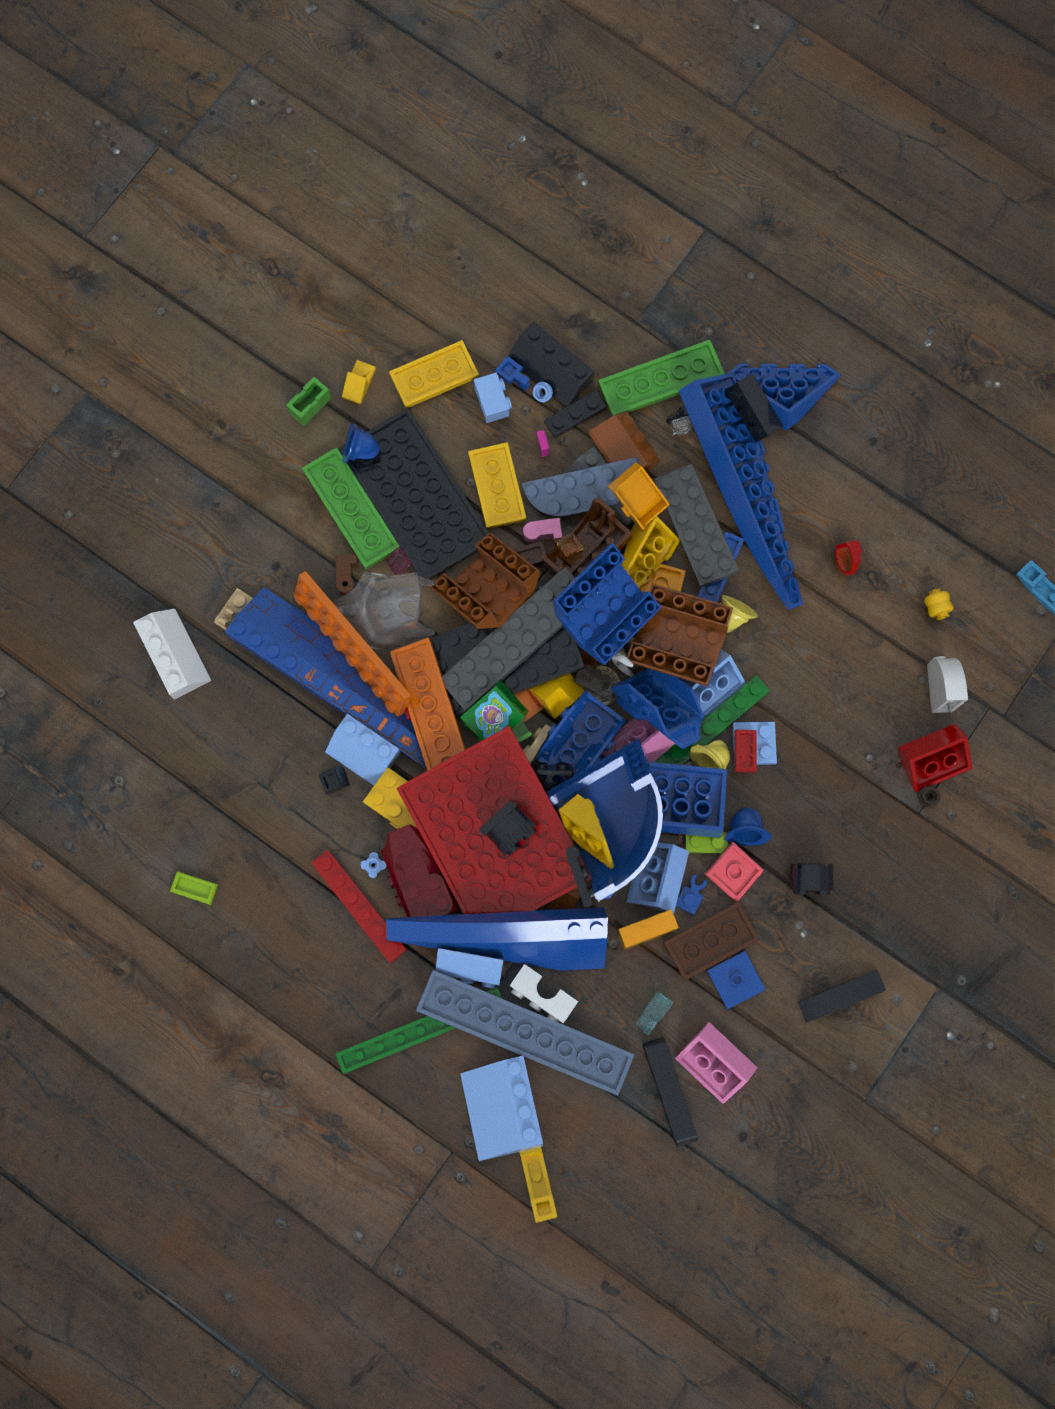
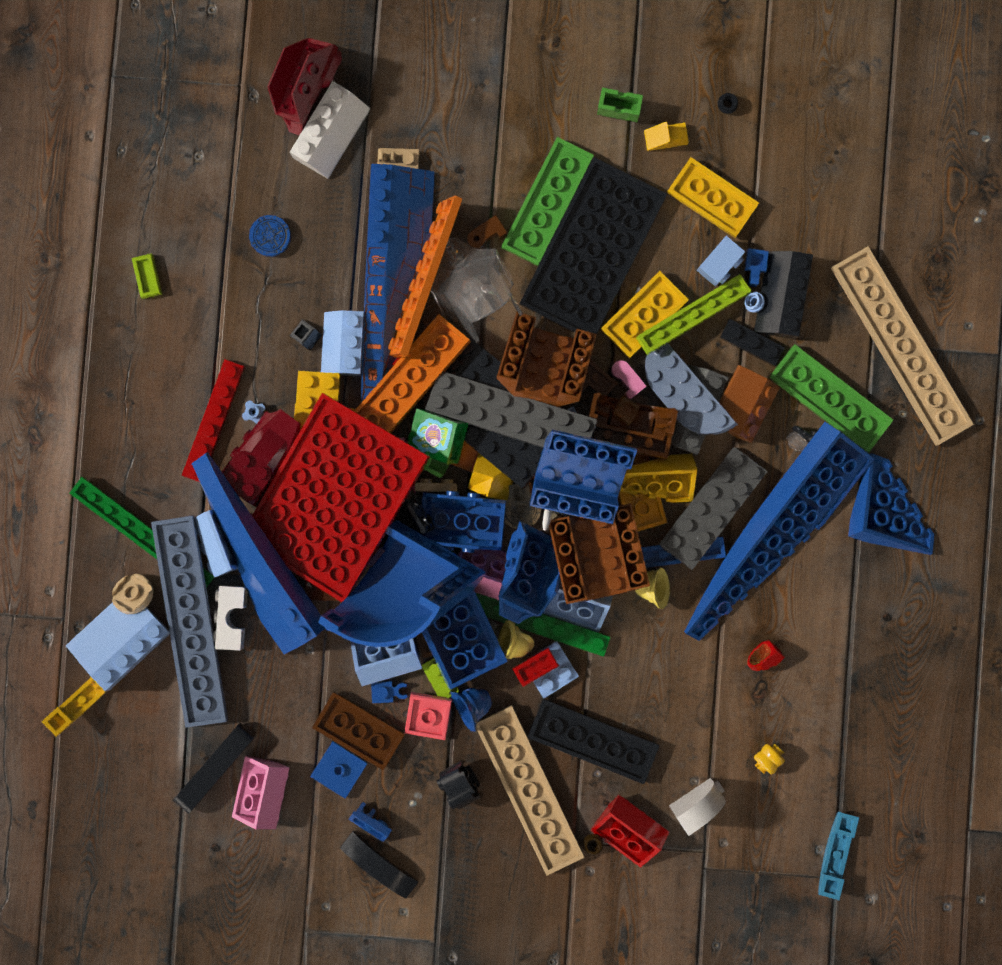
camera: 60 degrees right, 10 degrees up
(112, 649) = (299, 79): none -> dark red slope
(228, 758) = (270, 236): none -> blue tile
(359, 445) = (605, 174): blue piece -> none
(360, 313) = (730, 98): none -> black plate
(398, 561) = (525, 272): clear pink tile -> none
(469, 1070) = (132, 594): none -> tan tile
(509, 828) = (339, 509): black piece -> none
(522, 445) = (693, 314): none -> lime plate
(542, 443) = (707, 330): dark pink tile -> none
(580, 875) = (337, 592): black plate -> none
(584, 828) = (380, 572): yellow slope -> none
(638, 495) = (703, 444): light orange container -> none
(647, 929) = (332, 674): light orange container -> none
(652, 298) = (902, 346): none -> tan plate
(653, 1012) = (271, 717): clear light blue leg -> none
(754, 408) = (850, 496): black brick -> none
(798, 982) = (375, 827): none -> blue plate
(838, 742) = (593, 741): none -> black plate
(850, 822) = (529, 790): none -> tan plate

